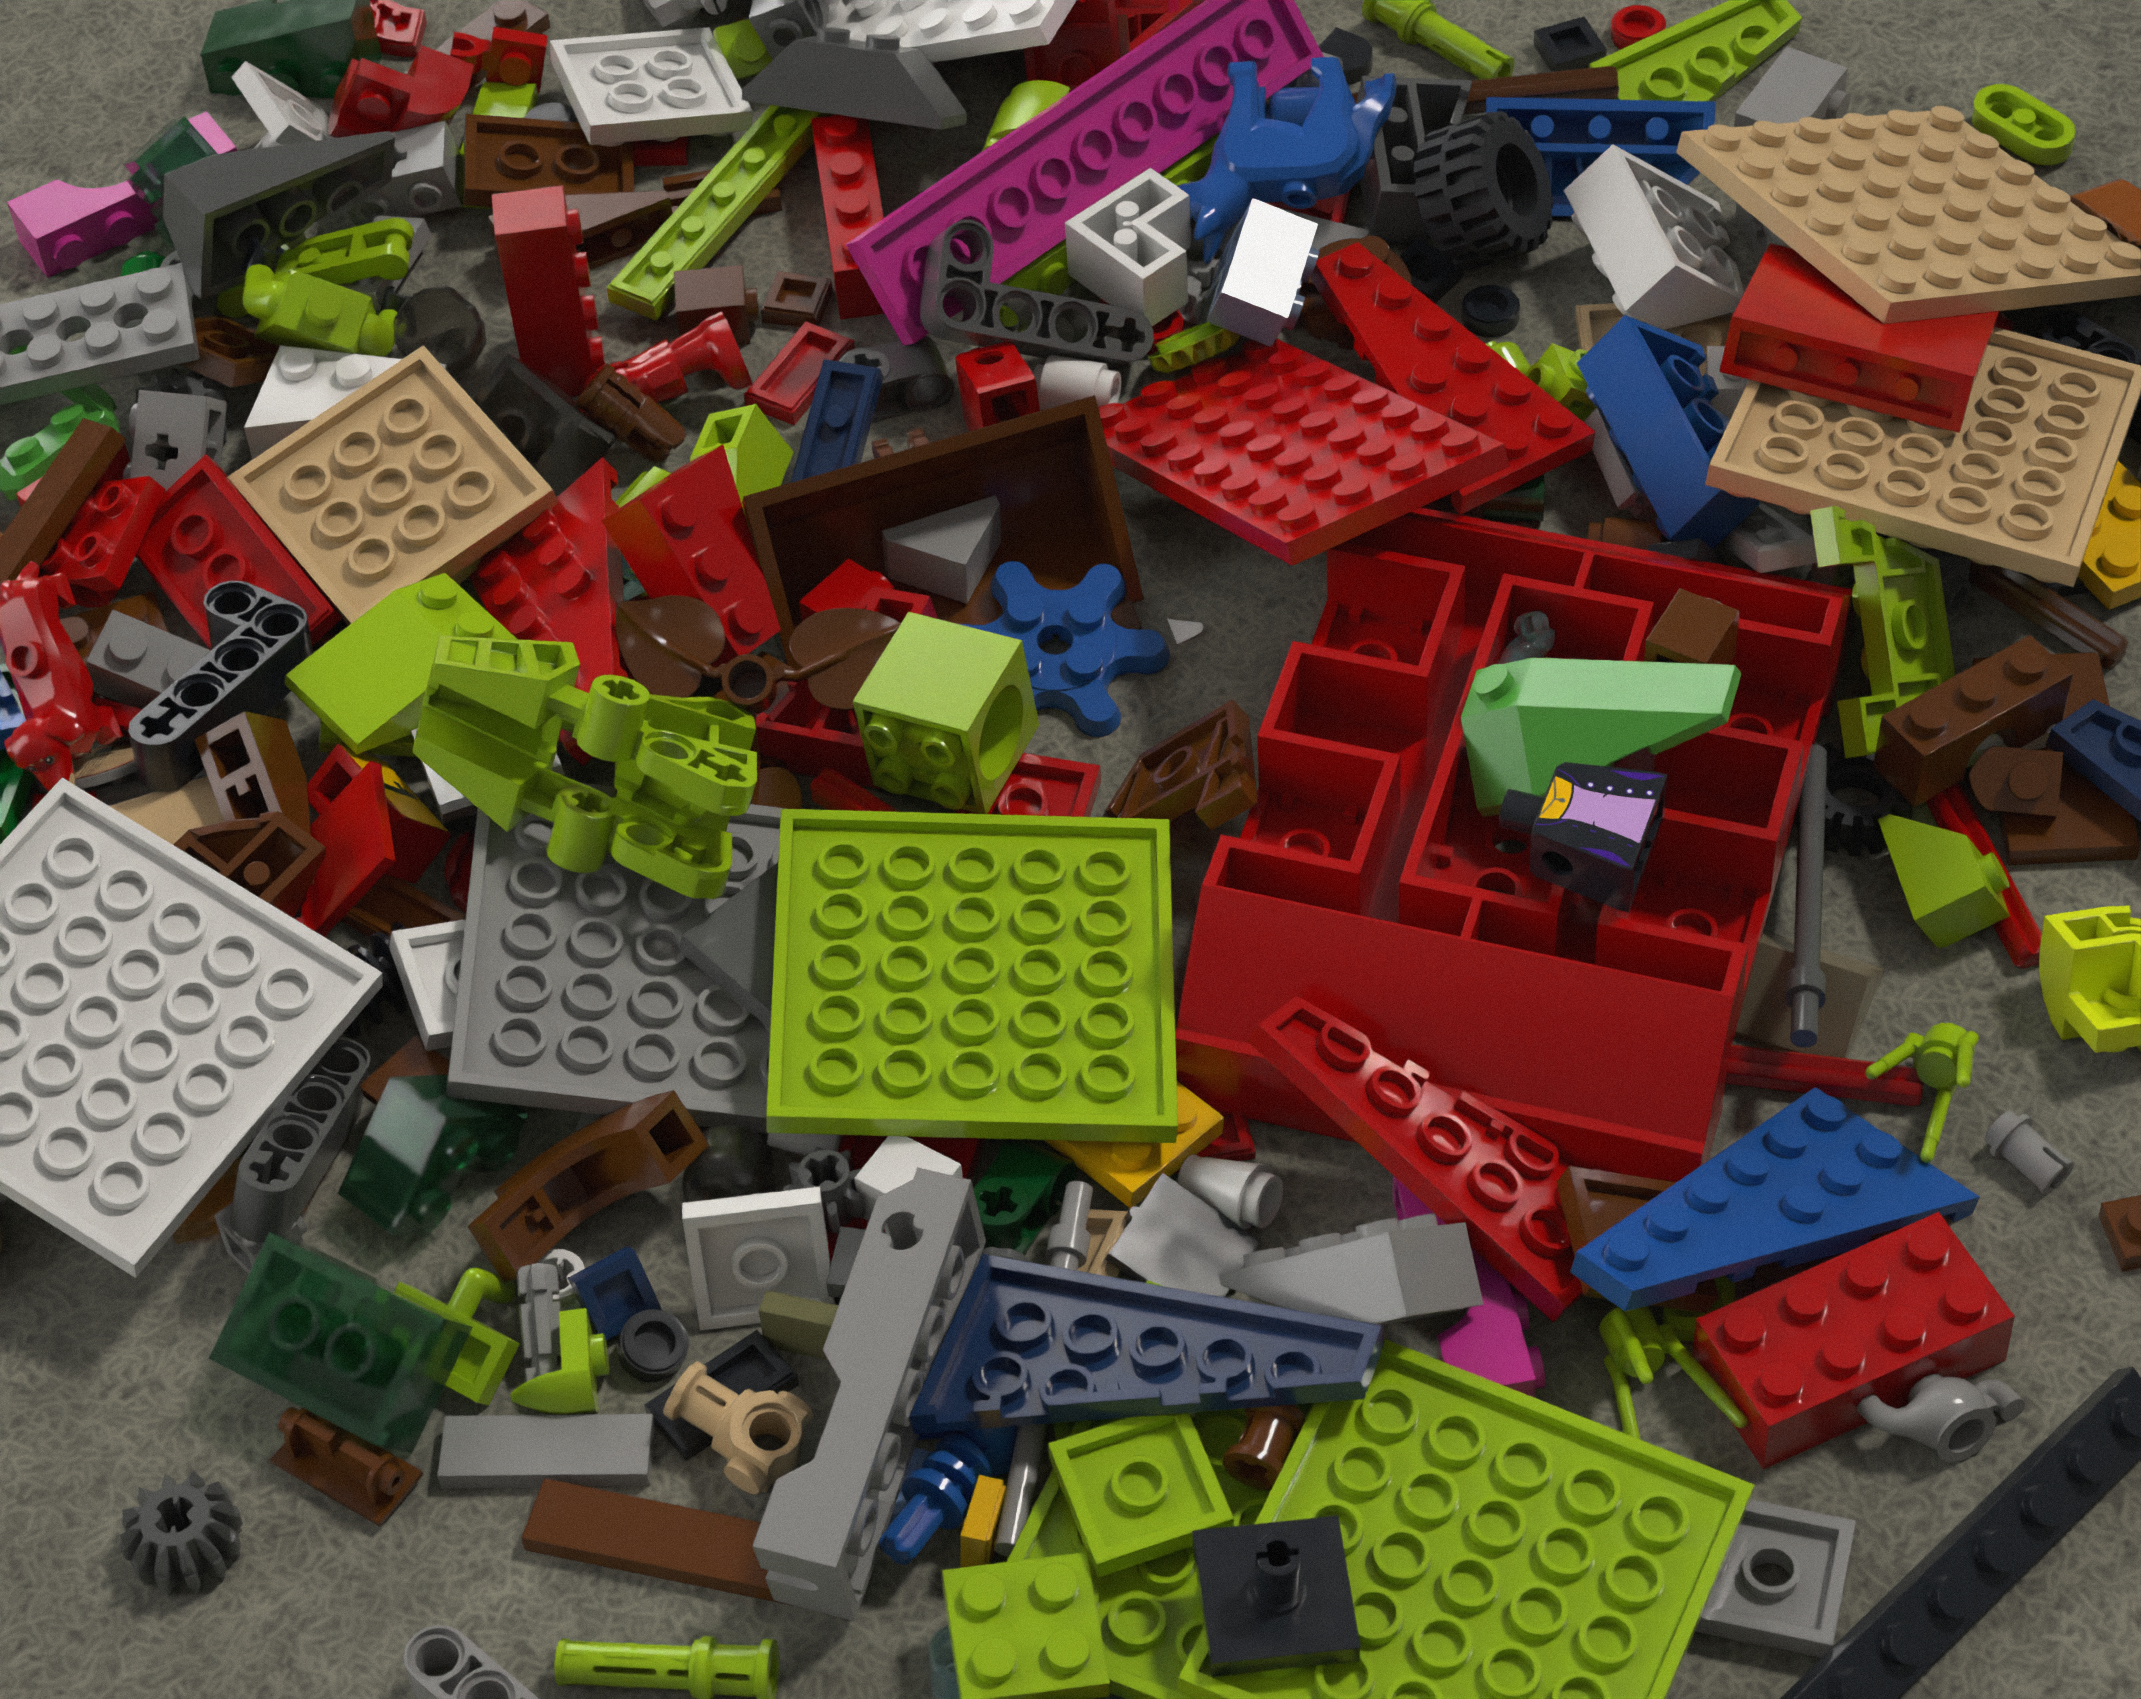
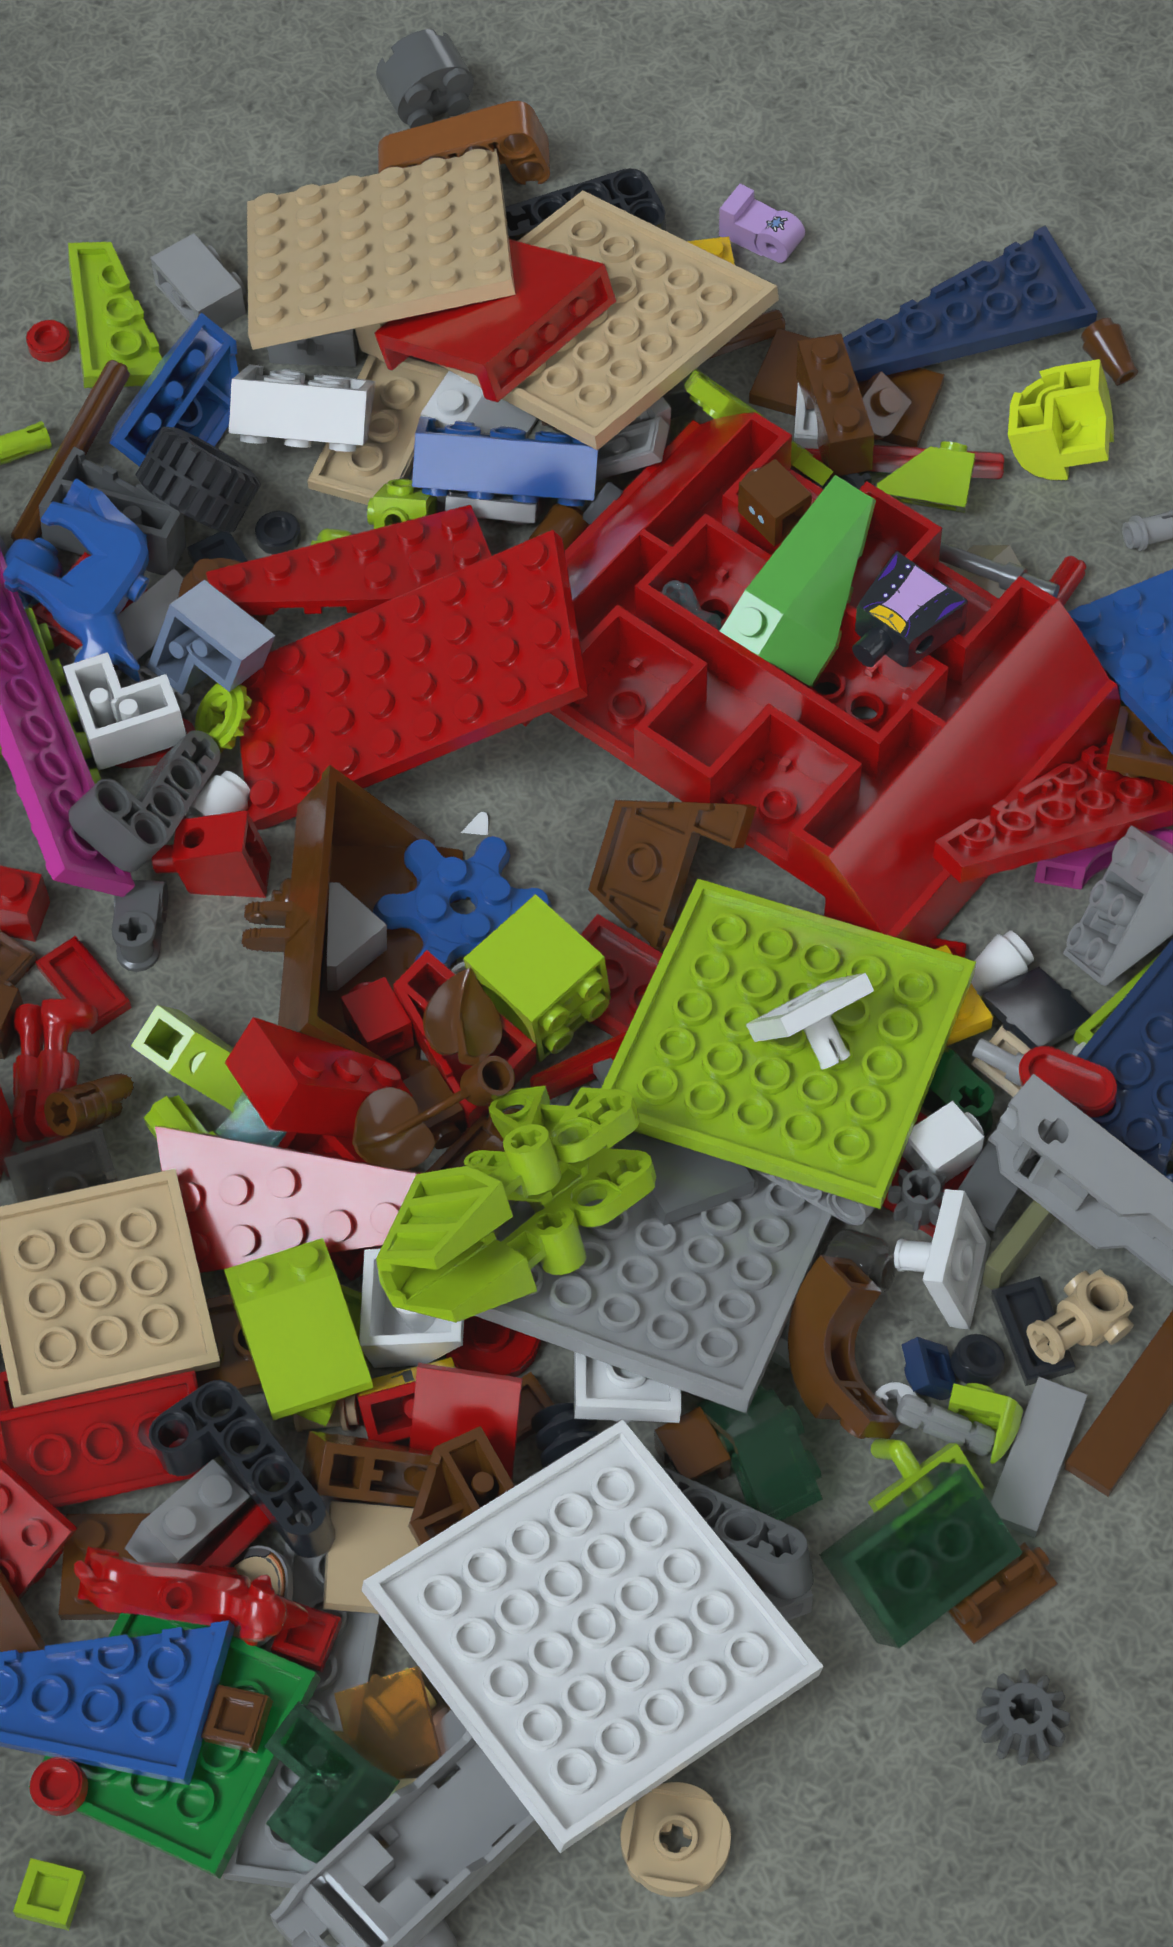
camera: 70 degrees left, 10 degrees up
(838, 418) = (195, 979): dark blue tile -> none
(975, 958) = (813, 1014): none -> white tile
(1036, 1270) = (1076, 1079): none -> red tile
(1569, 45) = (41, 386): black tile -> none
(1942, 1062) = (1071, 538): lime plant -> none
(2023, 124) = (286, 168): lime plate -> none

